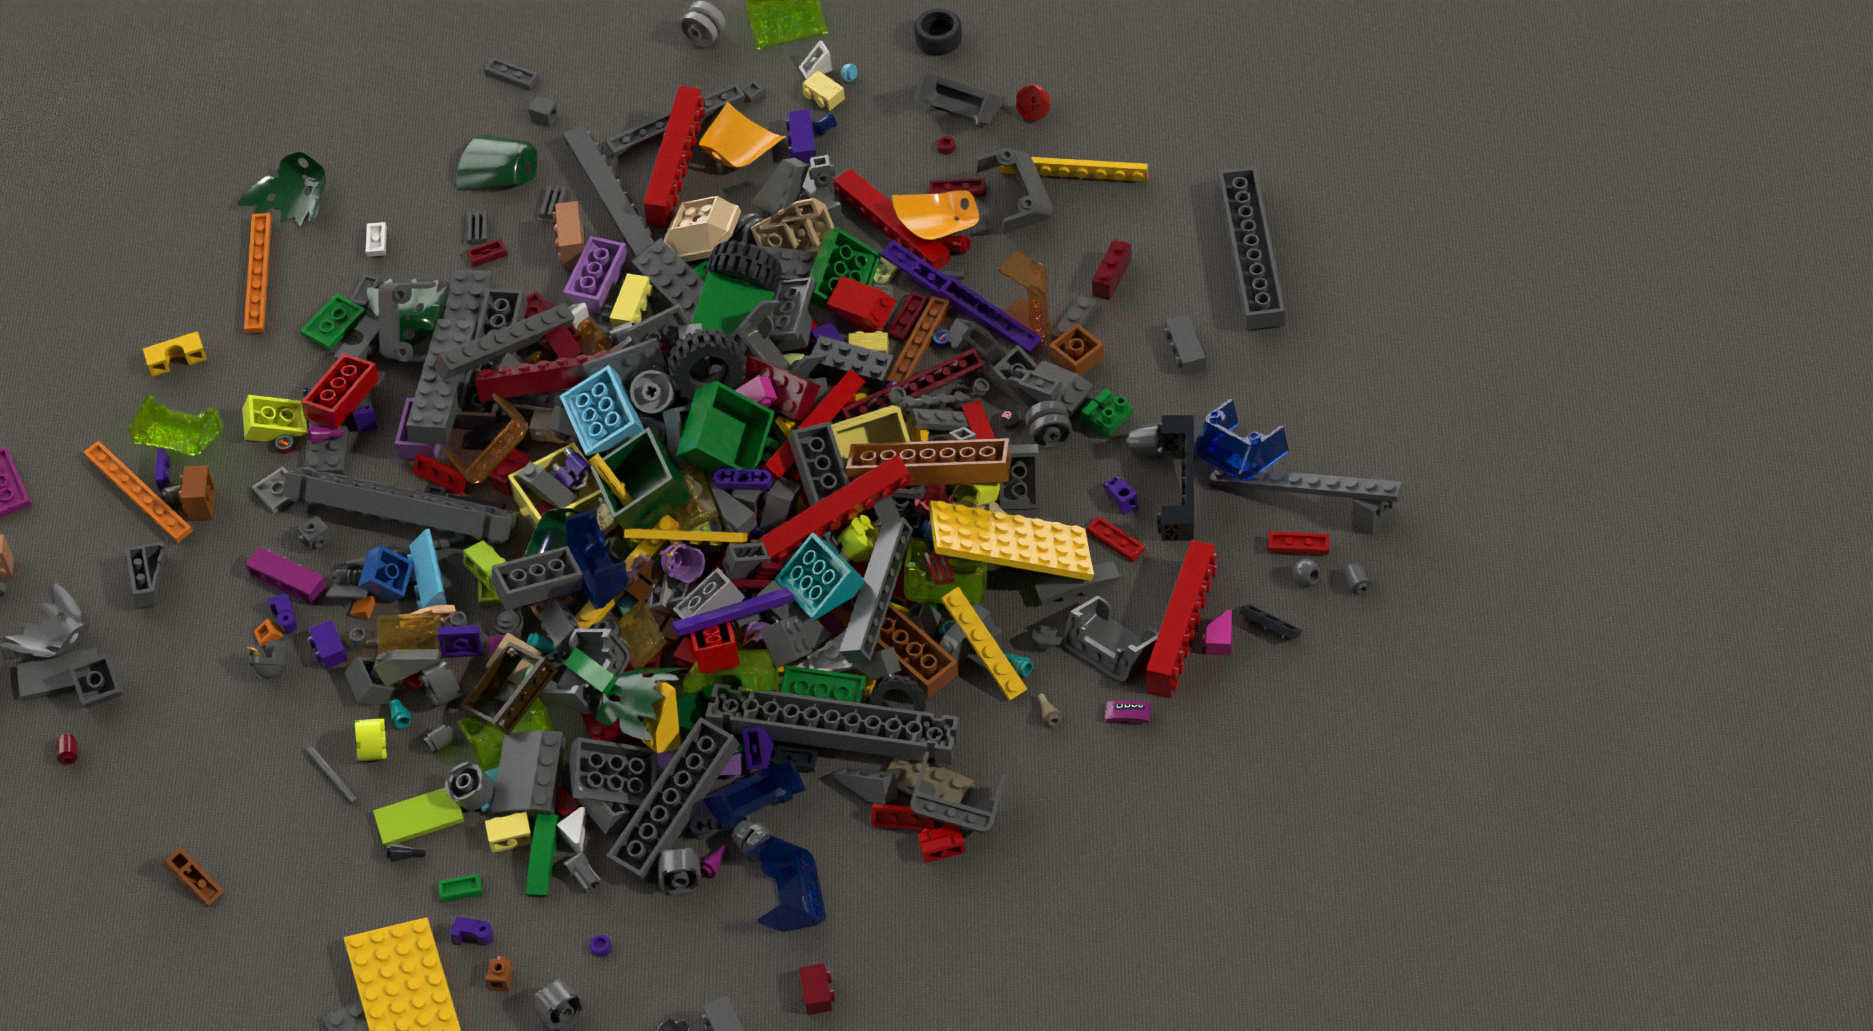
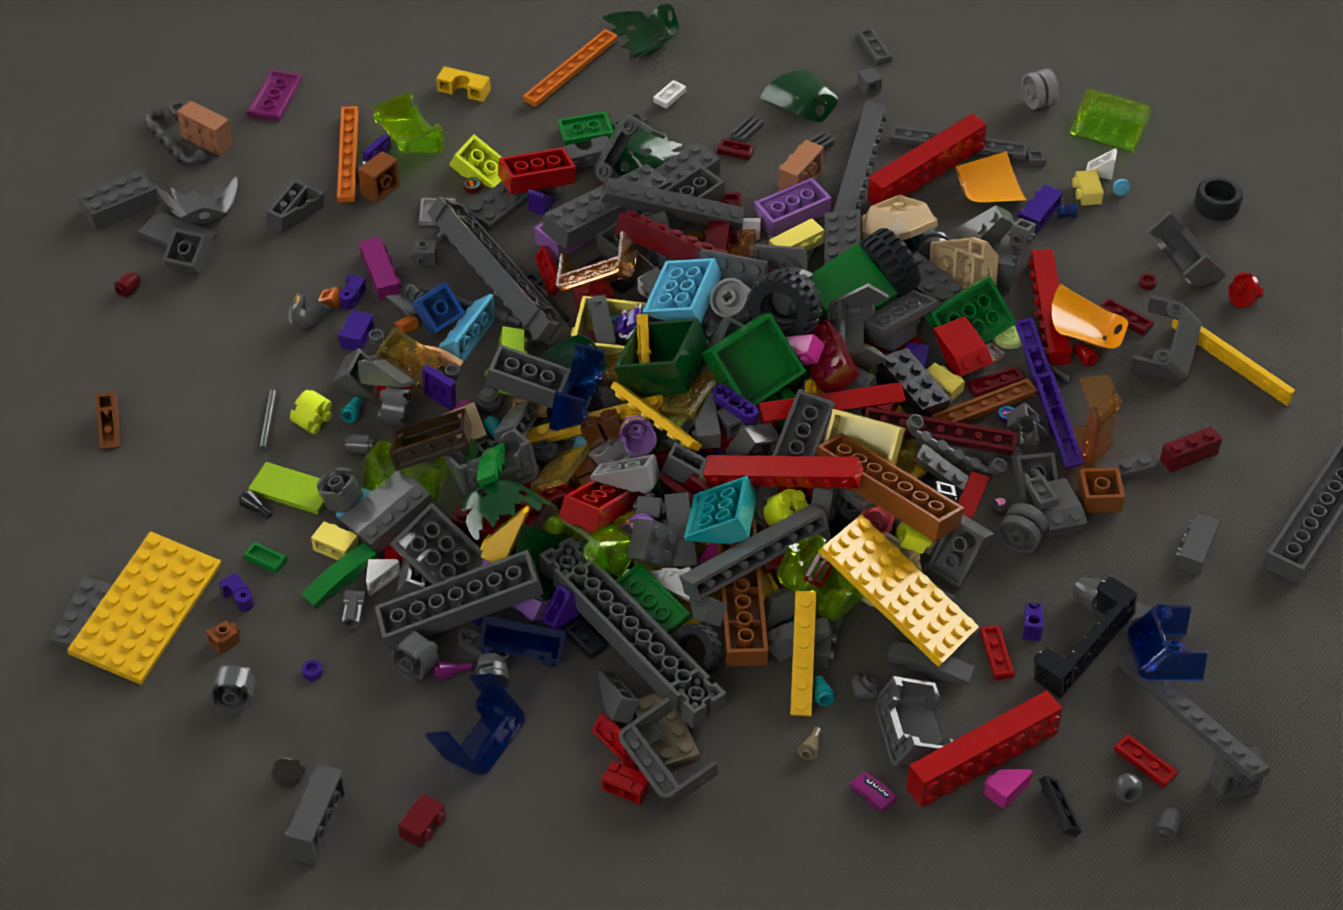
camera: 35 degrees right, 5 degrees down
(319, 434) = (493, 189): magenta cone -> none
(732, 611) = (632, 492): dark purple tile -> none
(1106, 413) = (1081, 552): green hips -> none

